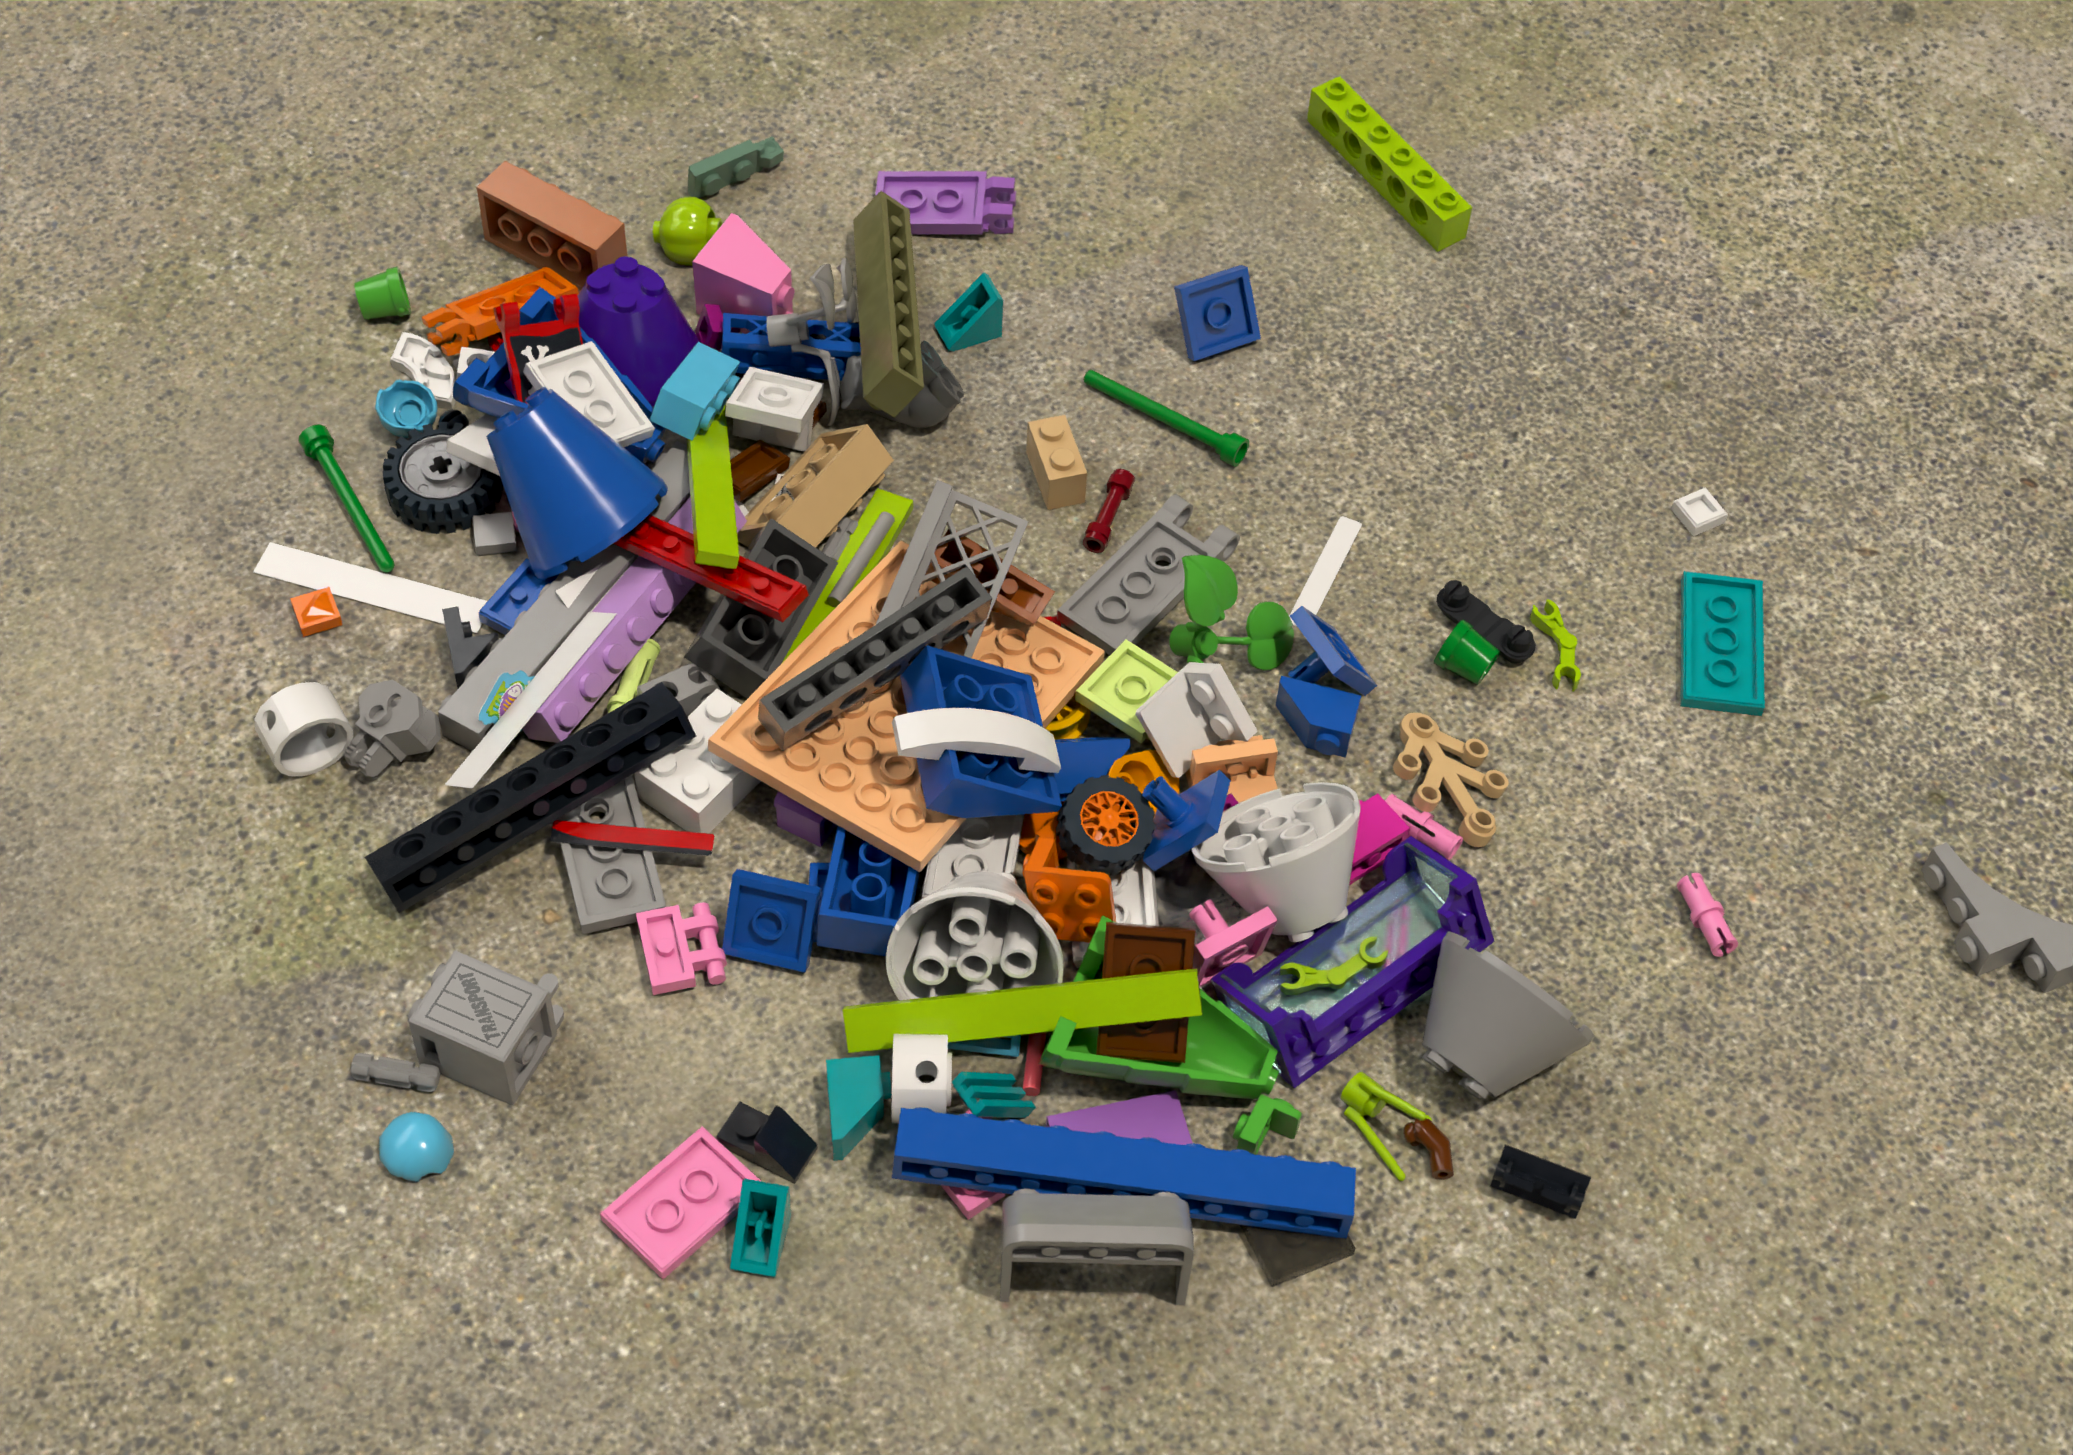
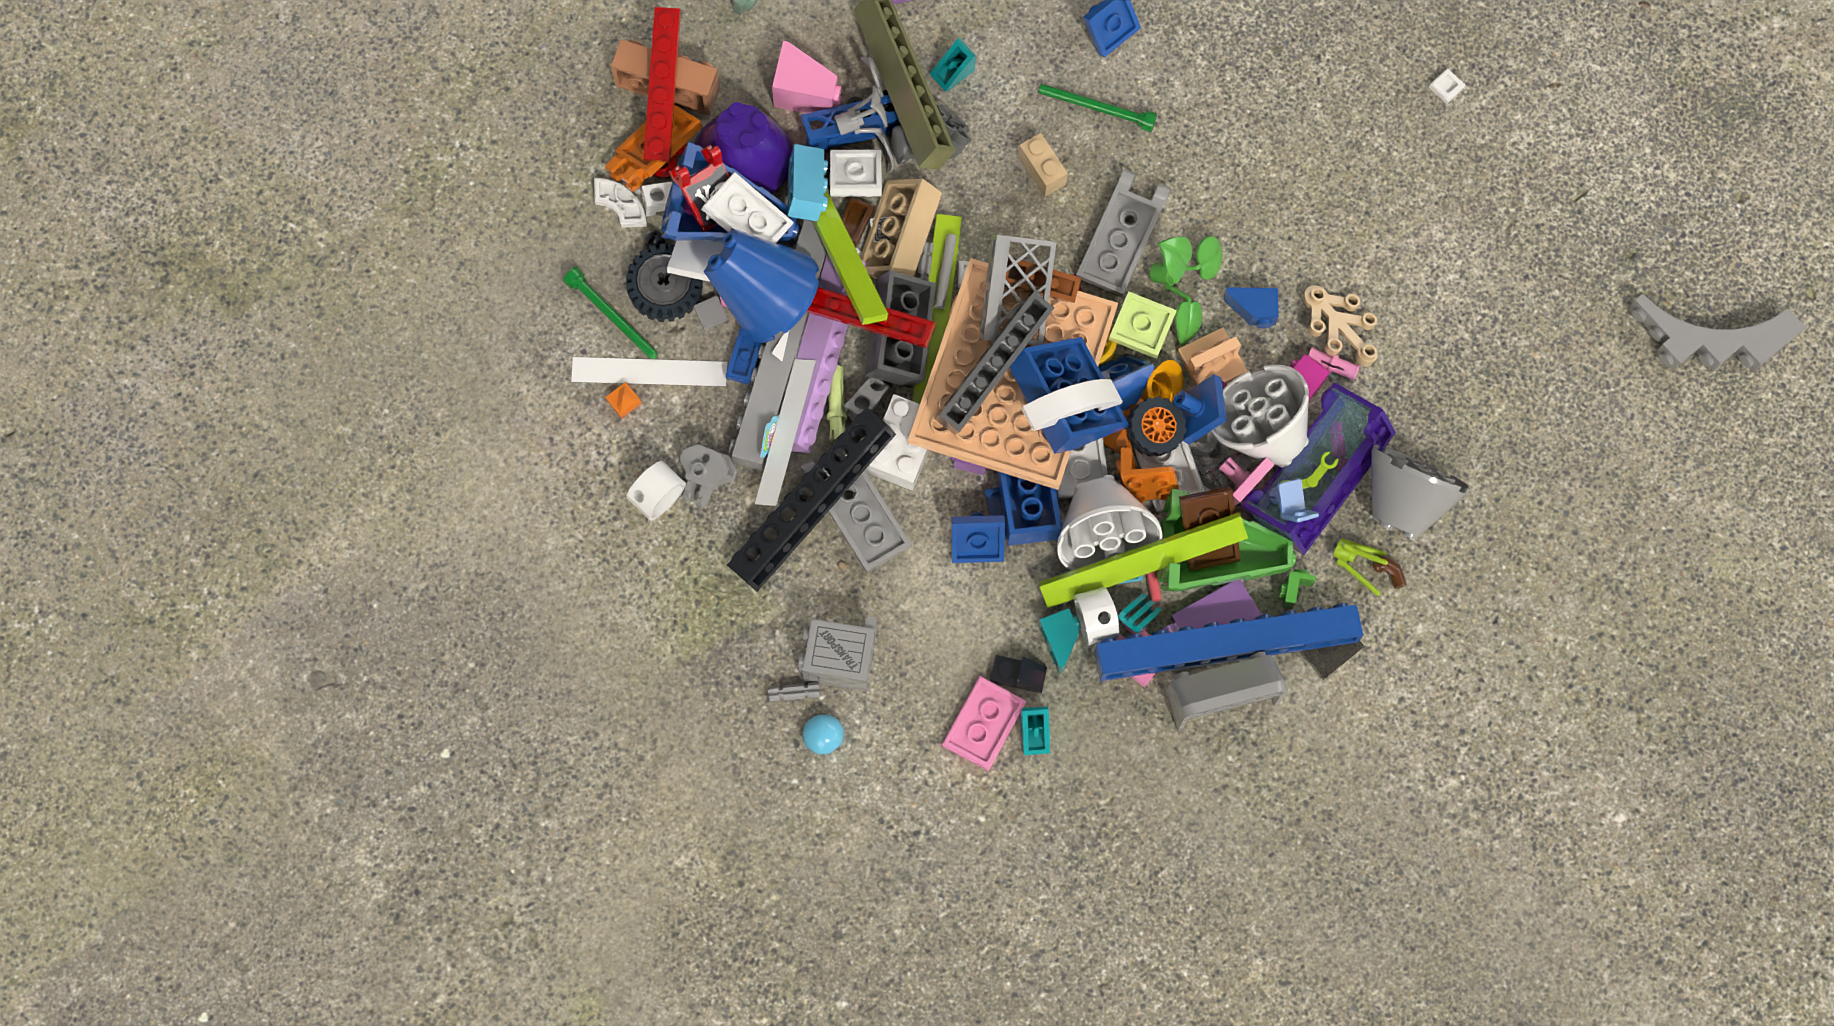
camera: 15 degrees left, 20 degrees up
(383, 295) = (572, 155): bright green piece -> none
(406, 407) = (622, 238): medium azure hair -> none
(465, 648) = (729, 409): slope -> none
(538, 218) = (662, 84): none -> red plate
(632, 838) = (877, 505): red sticker -> none
(667, 951) = (921, 571): bright pink plate -> none
(685, 229) = (749, 48): lime plant -> none
(710, 327) = (791, 123): magenta tile -> none
(1099, 532) = (1085, 170): dark red bar -> none
(1193, 712) = (1183, 333): white bracket -> none
(1291, 979) = (1291, 501): none -> bracket
(1328, 565) = (1228, 195): white sticker -> none
(1329, 655) = (1250, 262): blue tile -> none
(1467, 653) = (1331, 235): green piece -> none
(1511, 639) = (1336, 209): black piece -> none
(1540, 1181) = (1457, 576): black hinge -> none
(1553, 626) = (1386, 206): lime piece -> none
(1707, 914) = (1512, 376): bright pink pin -> none
(1722, 643) = (1481, 180): teal tile -> none

